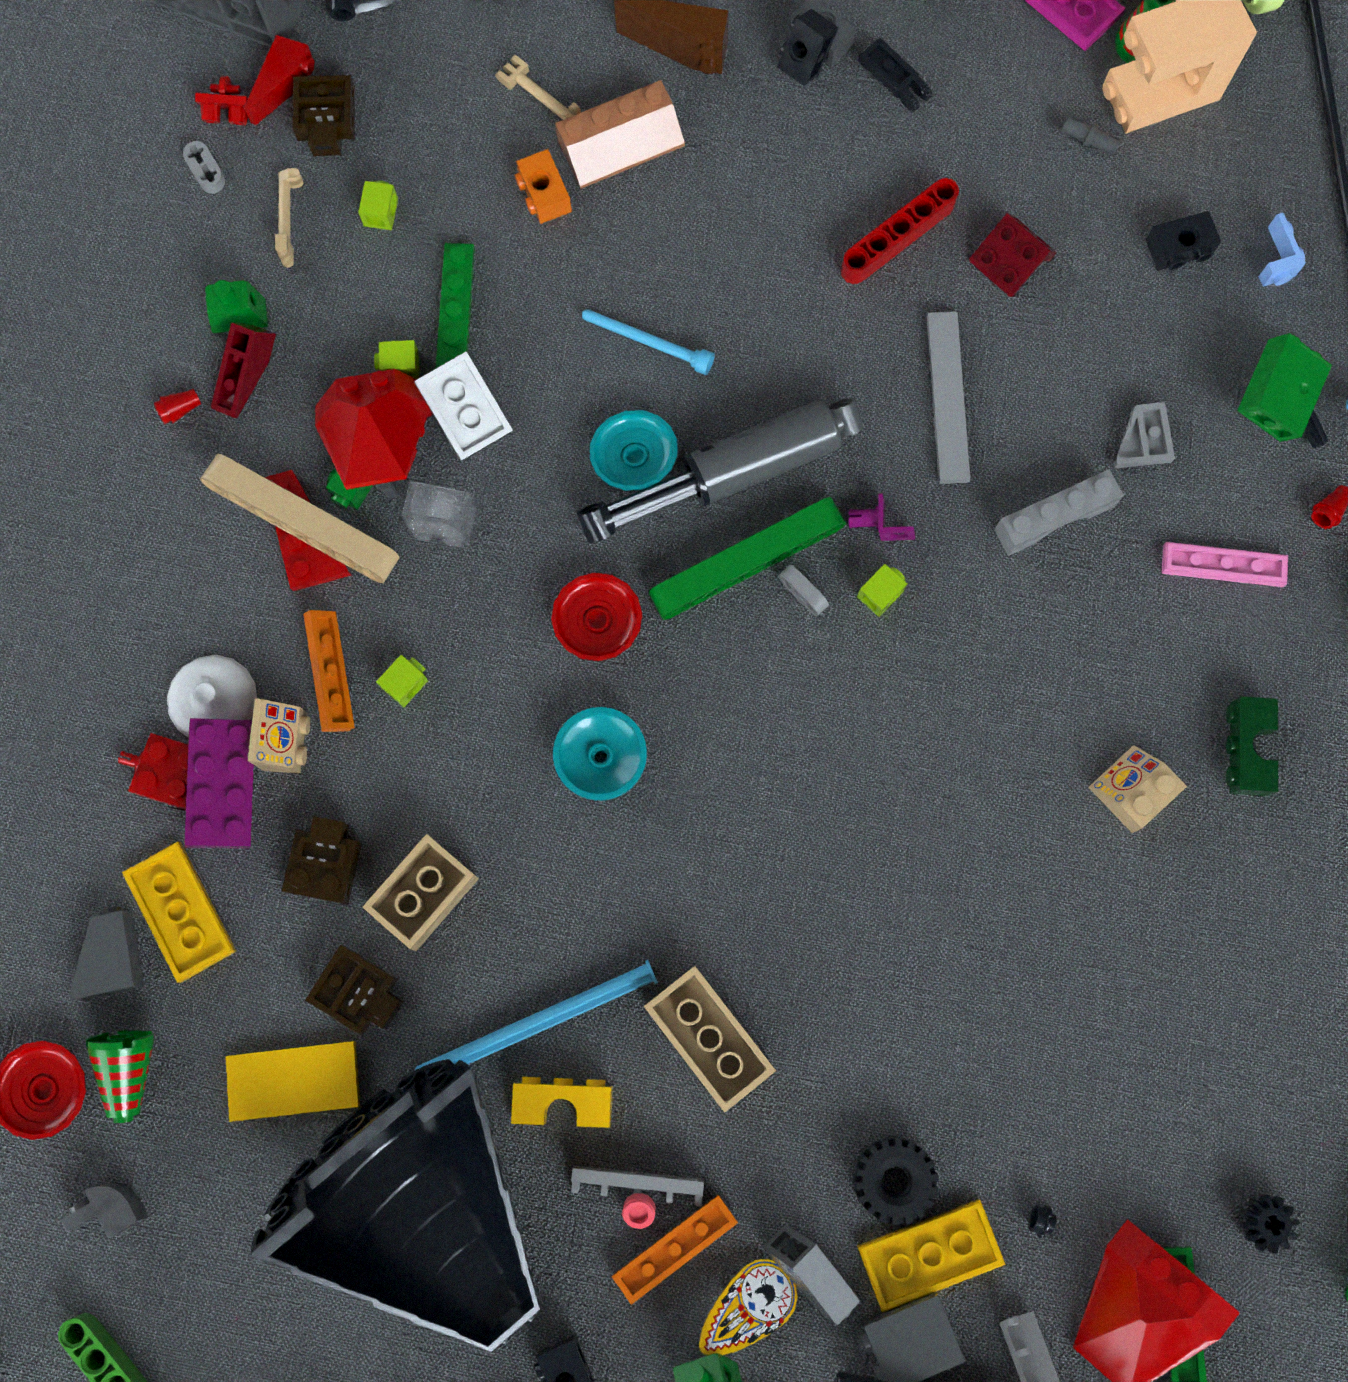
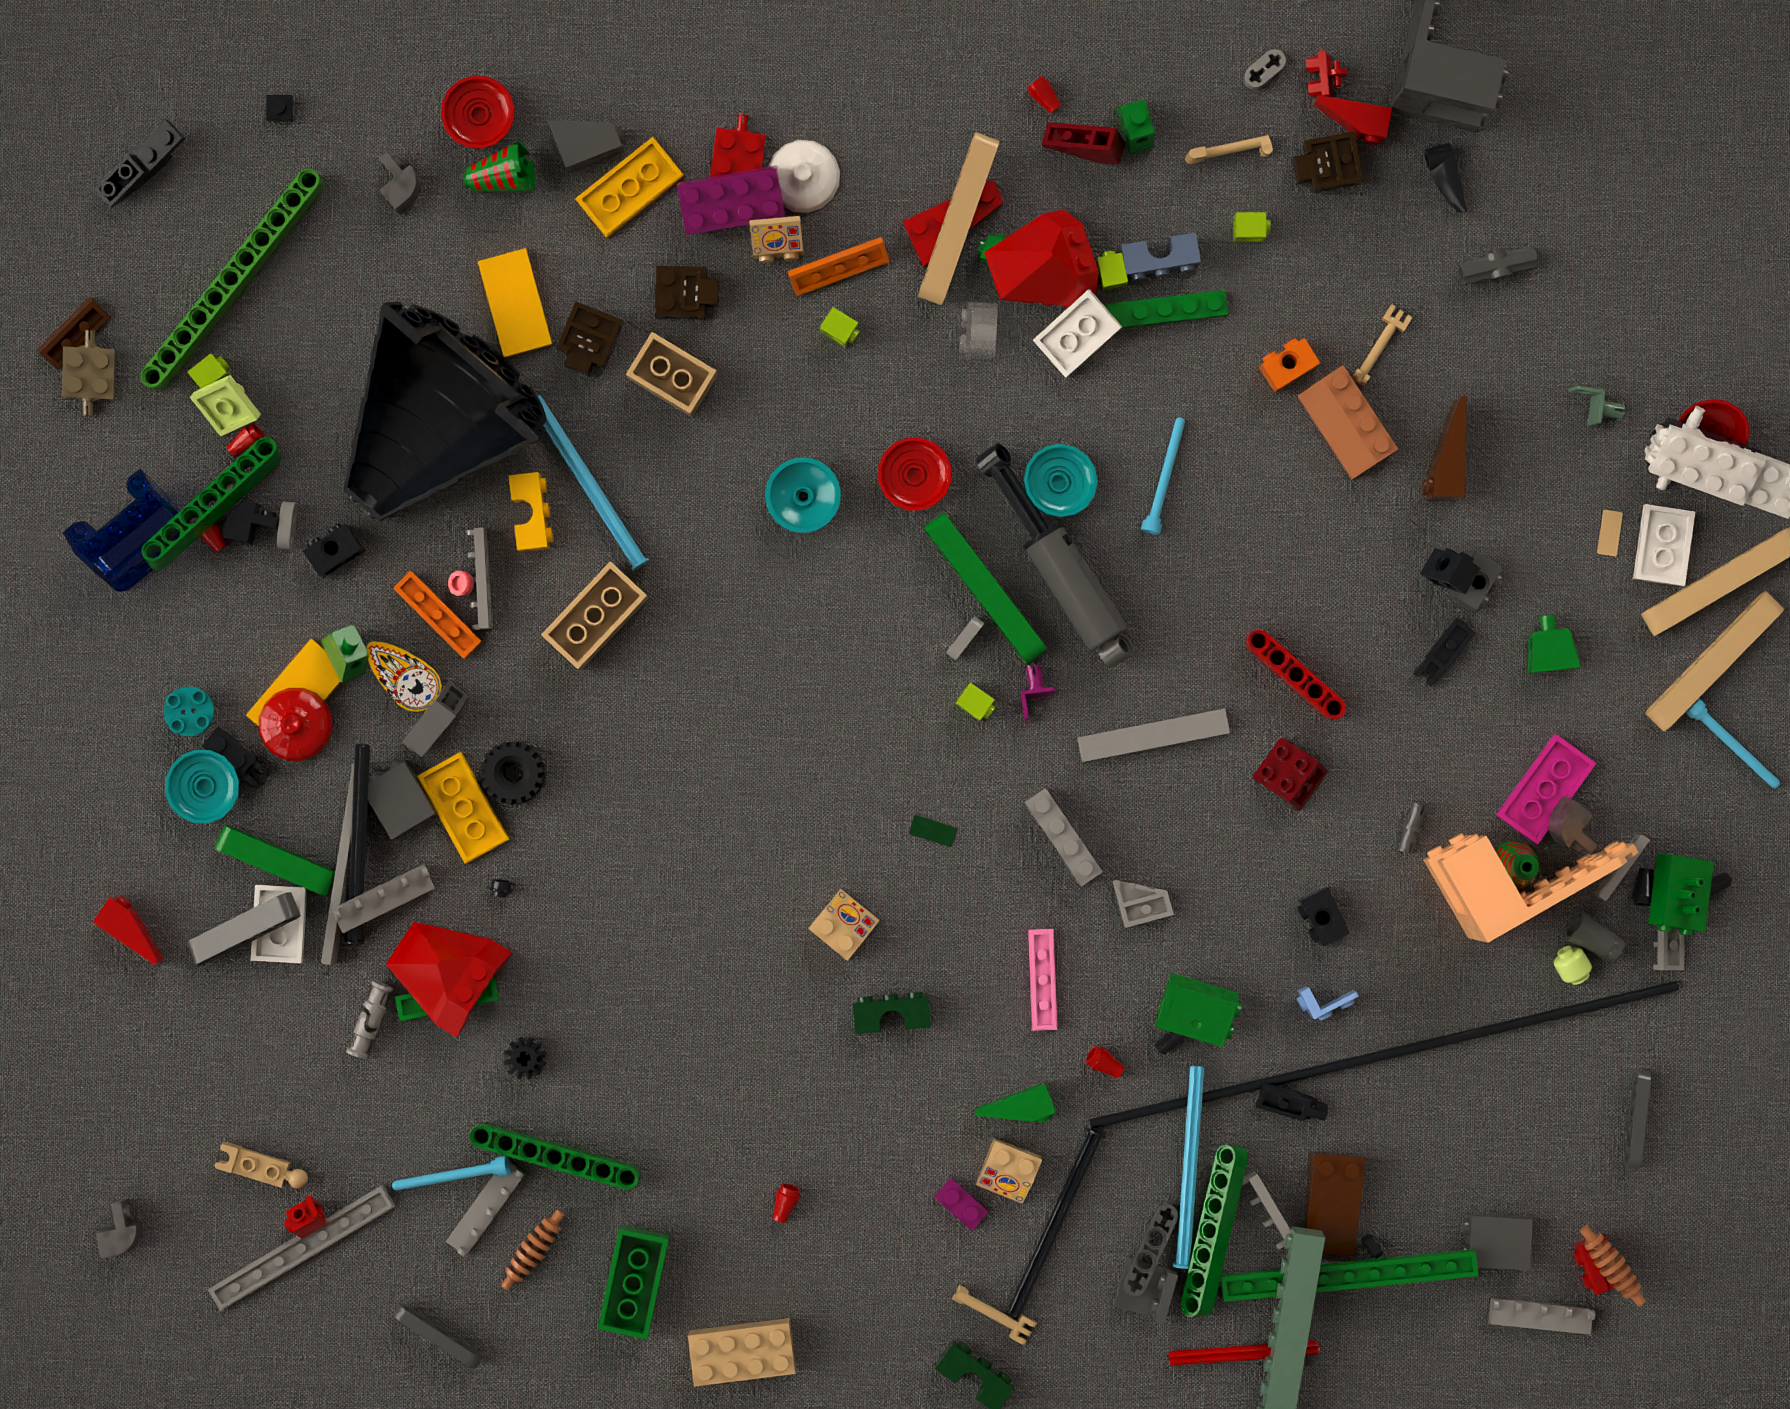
camera: 75 degrees right, 10 degrees up
(394, 281) = (1183, 256): none -> sand blue arch
(1030, 666) = (932, 831): none -> dark green sticker

